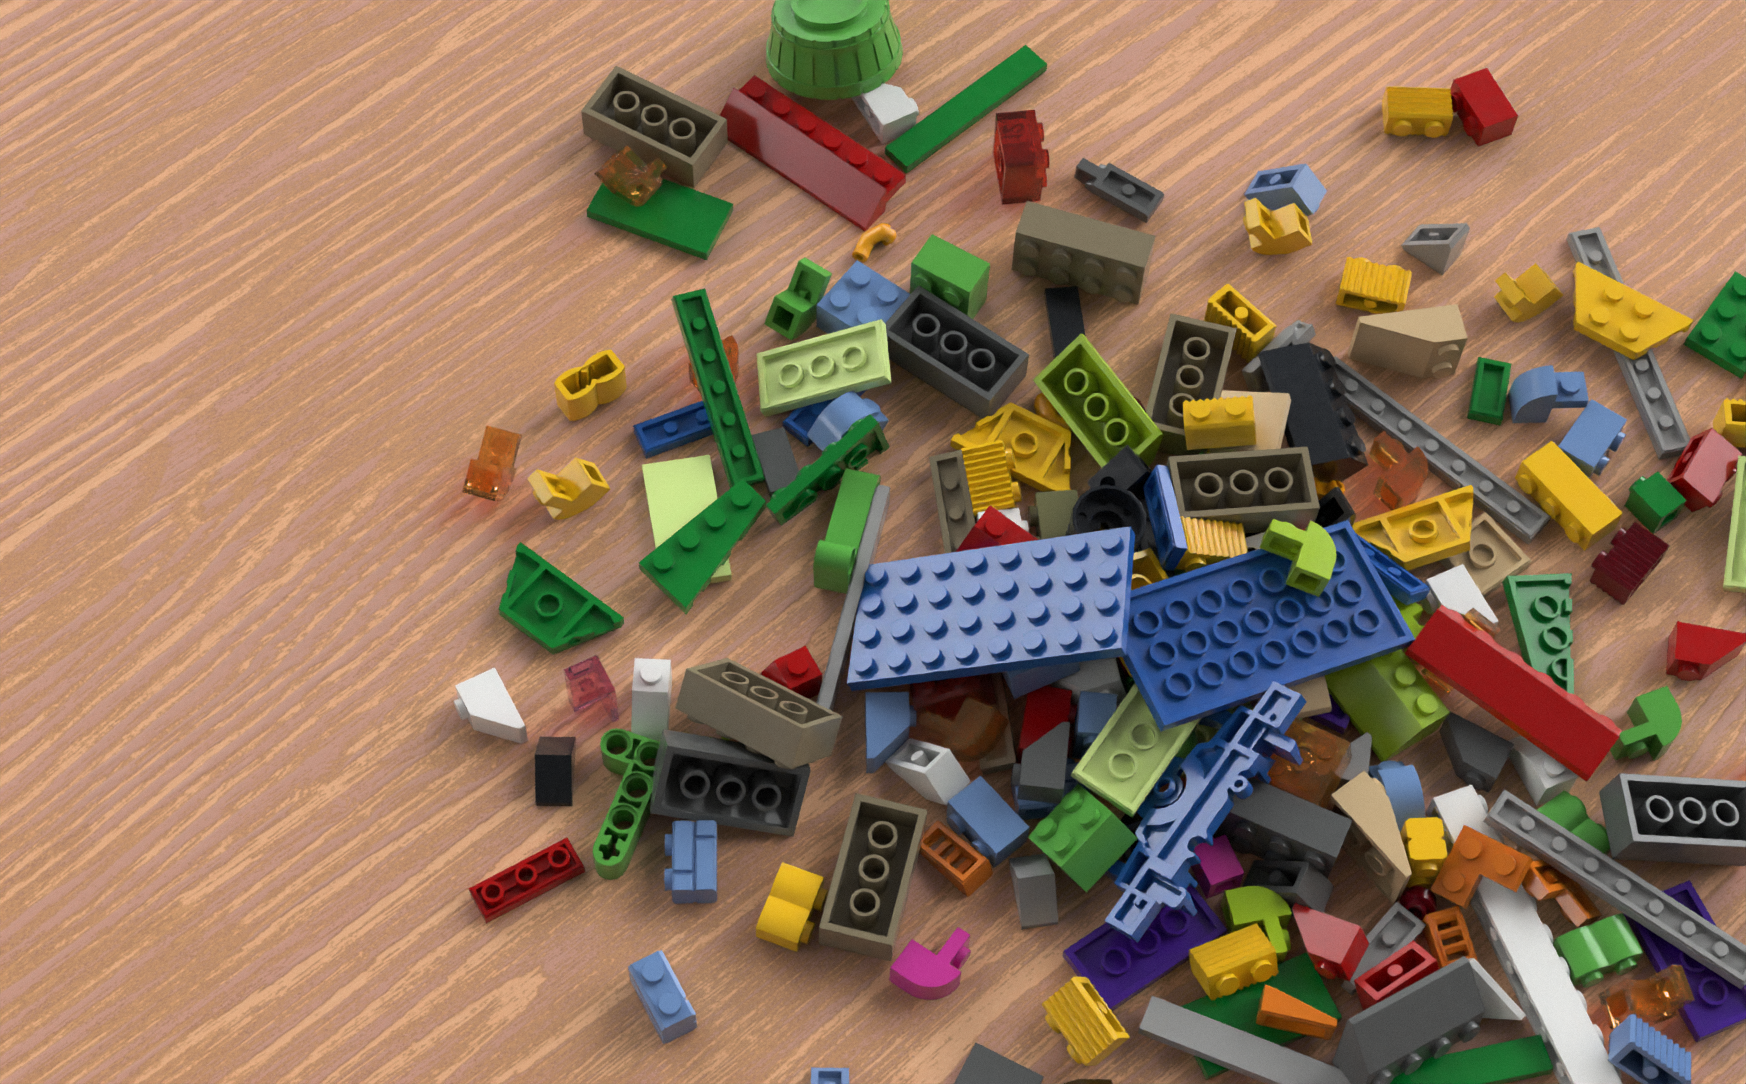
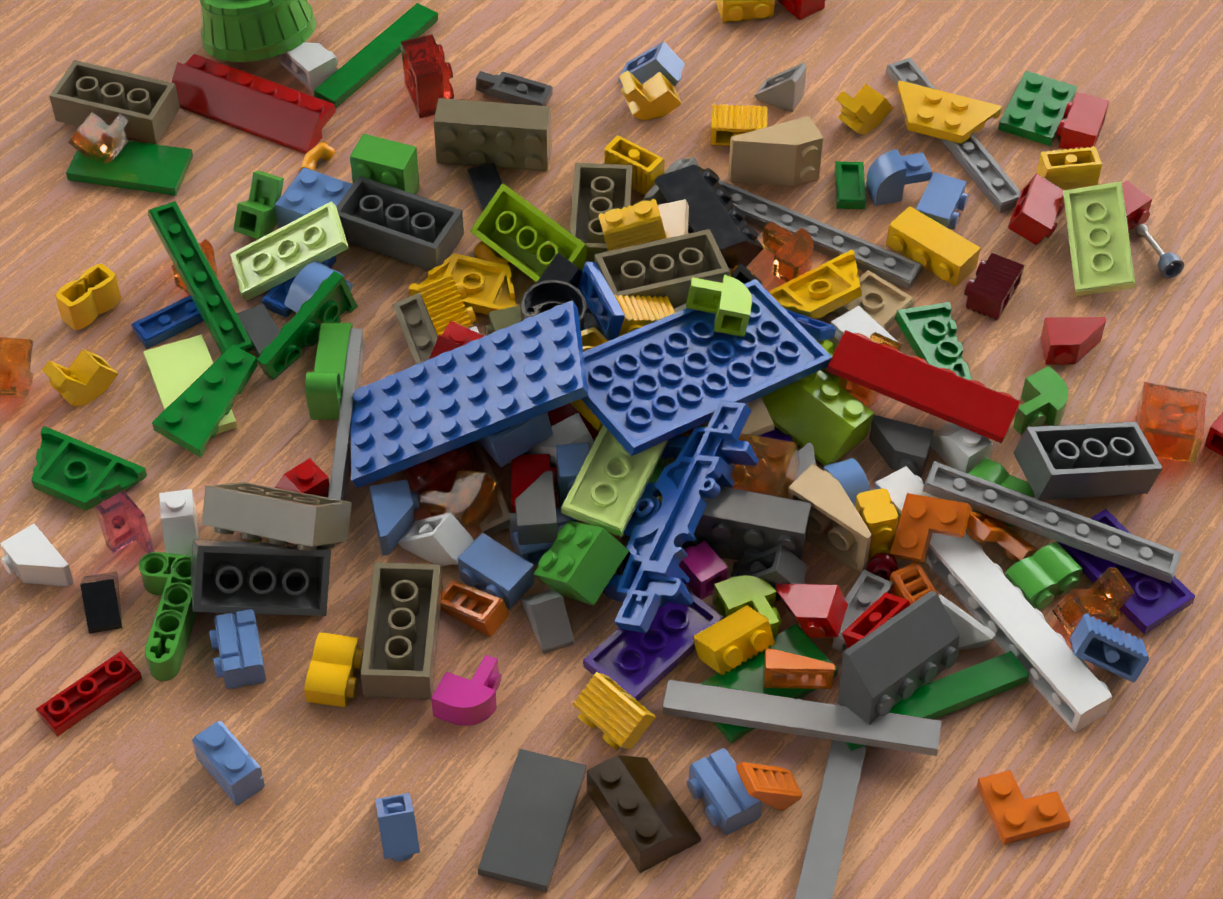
camera: 10 degrees left, 10 degrees down
(1654, 502) = (1004, 238): green brick -> none

